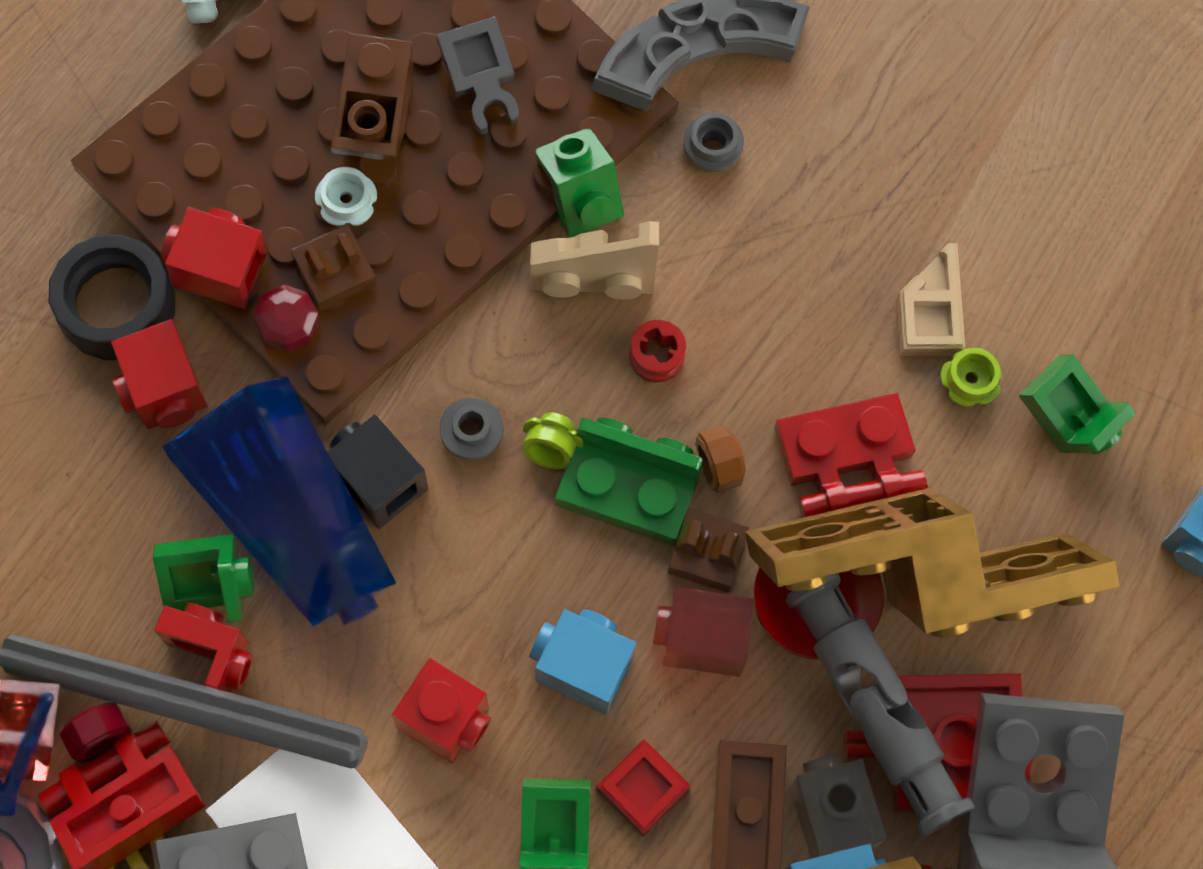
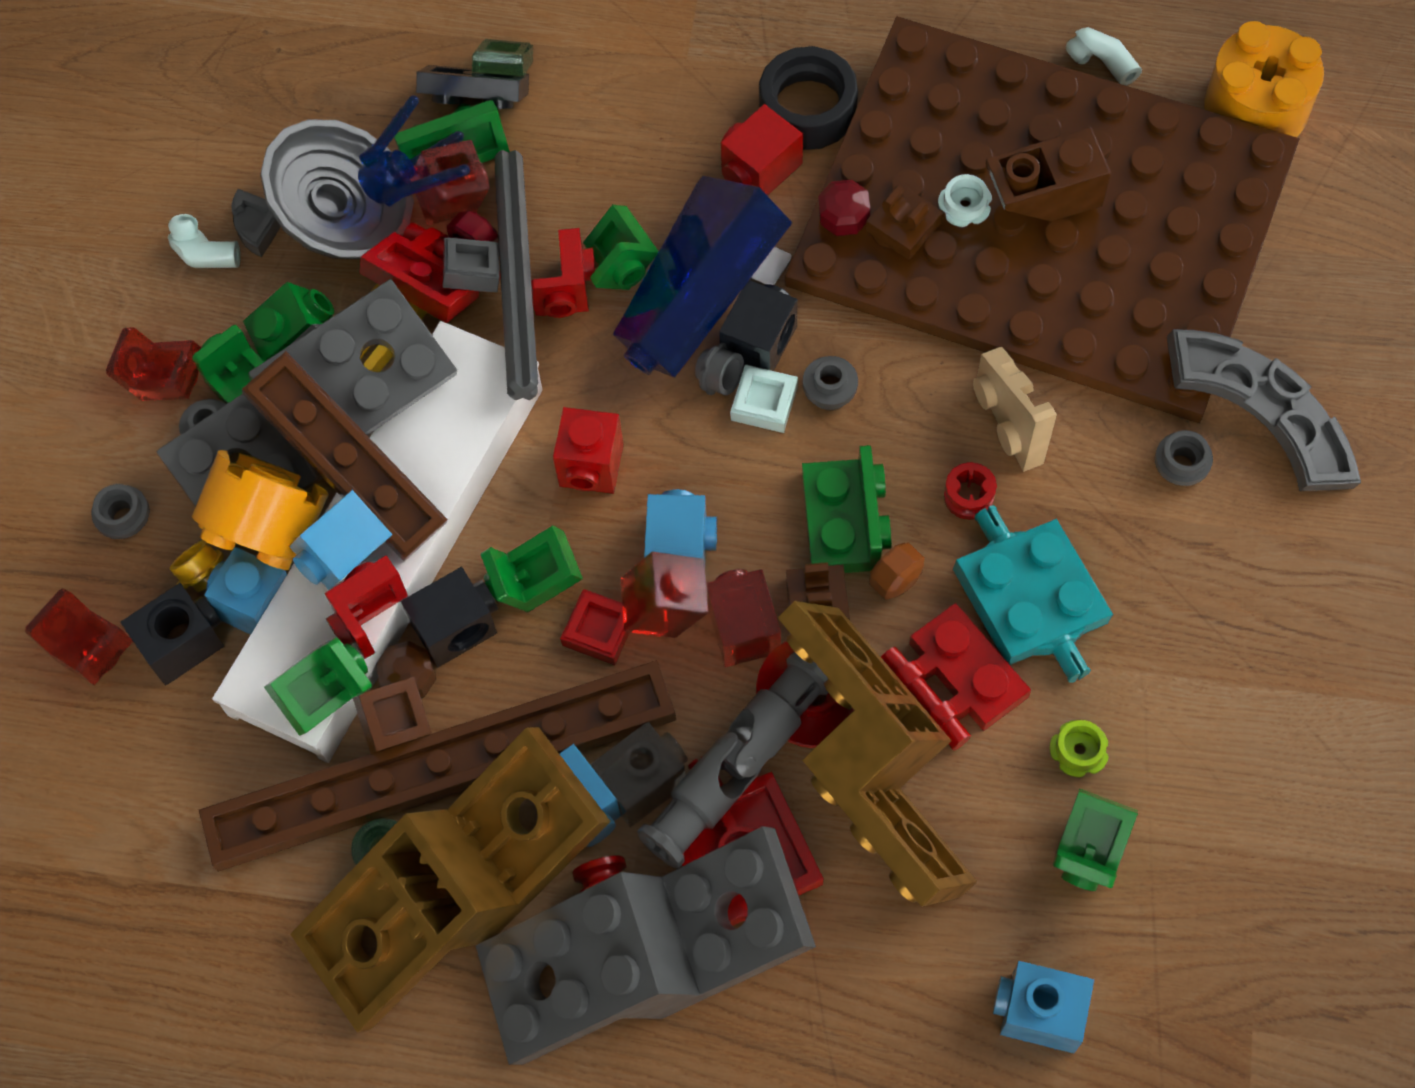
camera: 75 degrees right, 5 degrees down
(146, 747) = (471, 265): none -> dark grey tile
(214, 255) = (864, 134): red brick -> none
(402, 534) = (719, 370): none -> dark grey plate
(454, 504) = (764, 398): none -> light aqua tile
(478, 65) = (1130, 240): dark grey plate -> none
(550, 440) = (846, 437): lime plate -> none
(581, 182) = (1081, 367): green bracket -> none
(654, 701) = (664, 595): none -> clear red brick
(792, 345) = (1032, 592): none -> teal plate
(932, 309) = (1130, 694): tan tile -> none

